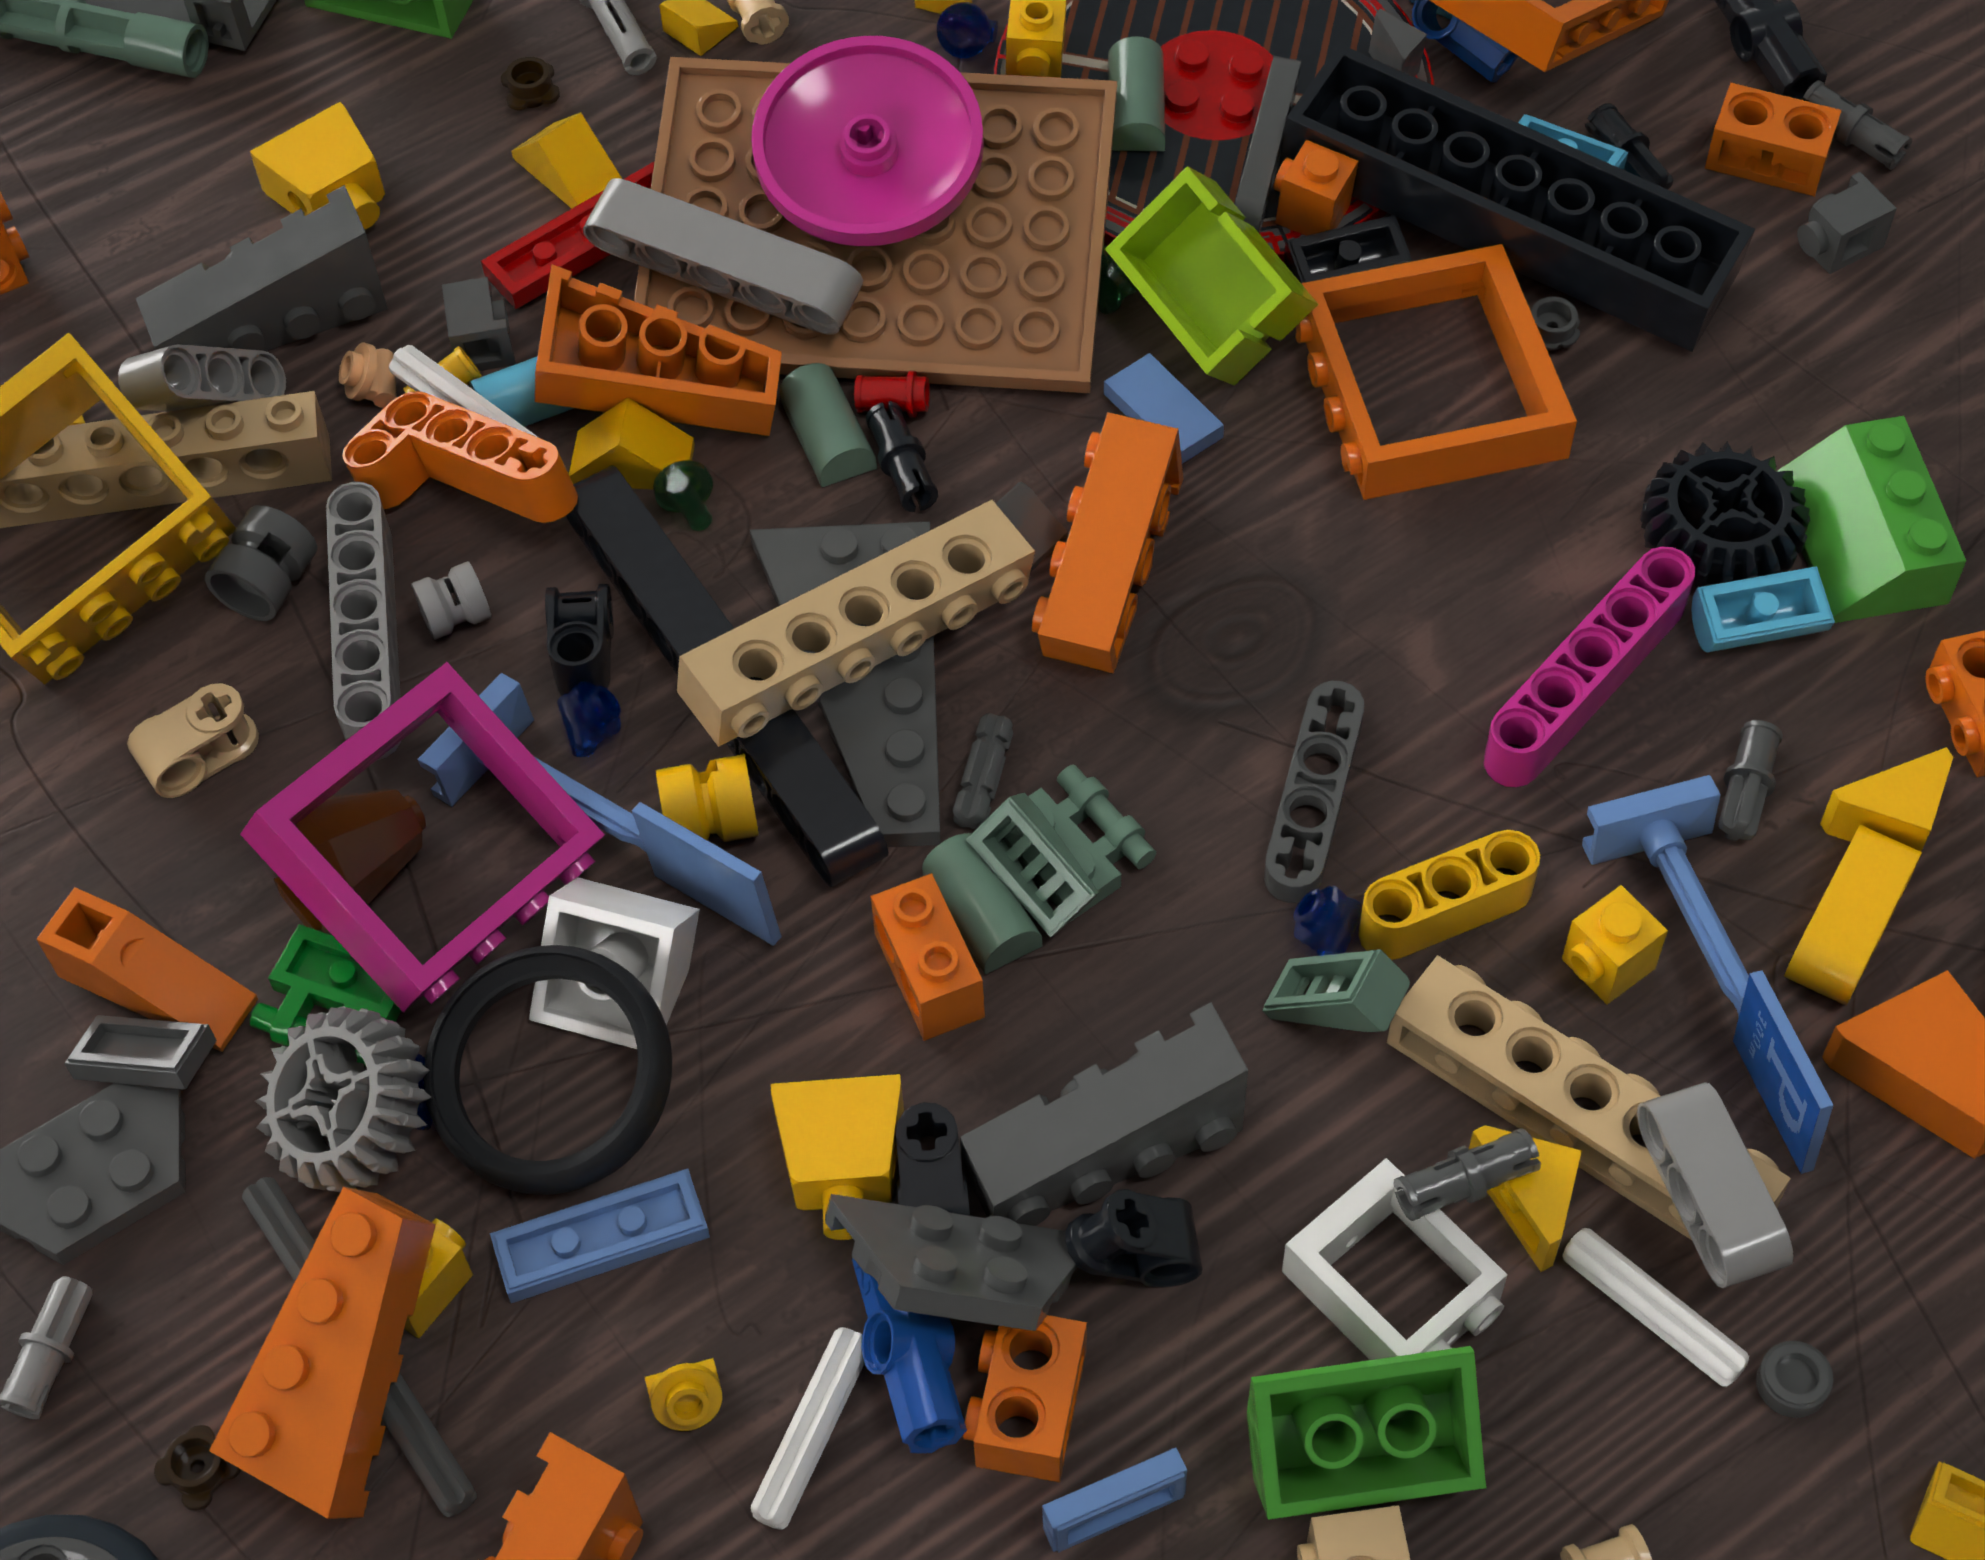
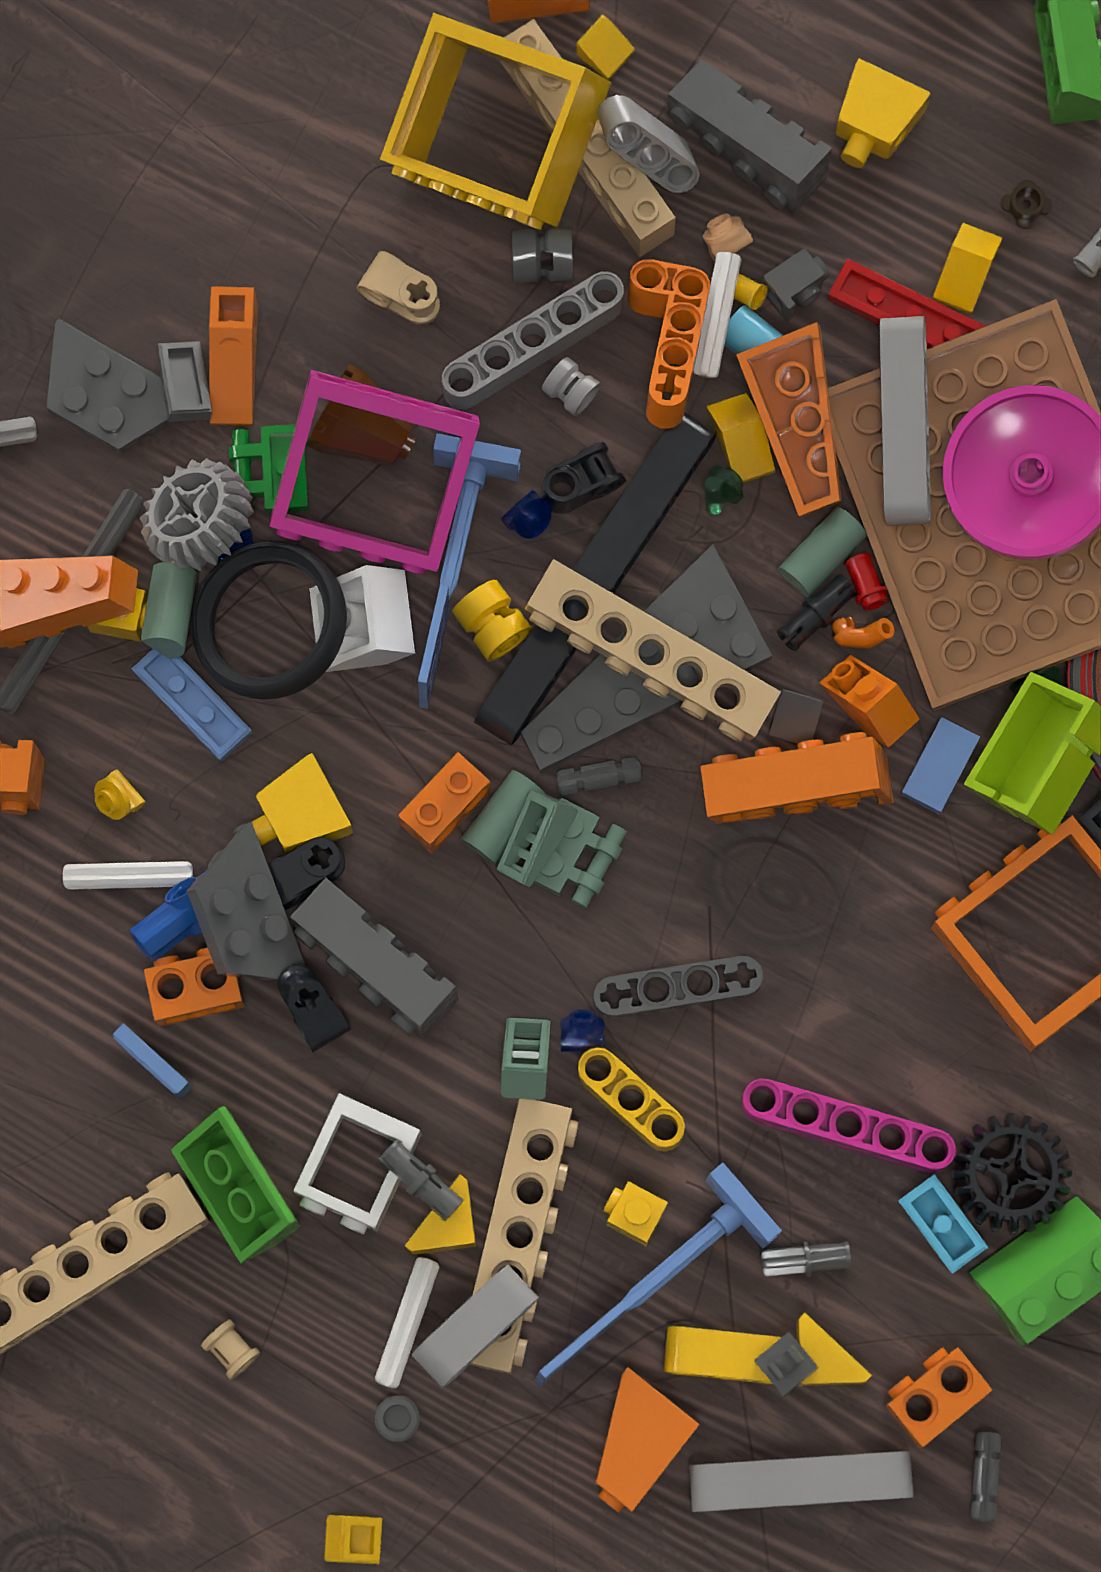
camera: 65 degrees right, 20 degrees up
(455, 1193) = (169, 609): none -> sand green brick
(961, 421) = (848, 636): none -> orange arm
(1041, 437) = (870, 700): none -> orange slope
(1900, 831) = (786, 1364): none -> dark grey tile

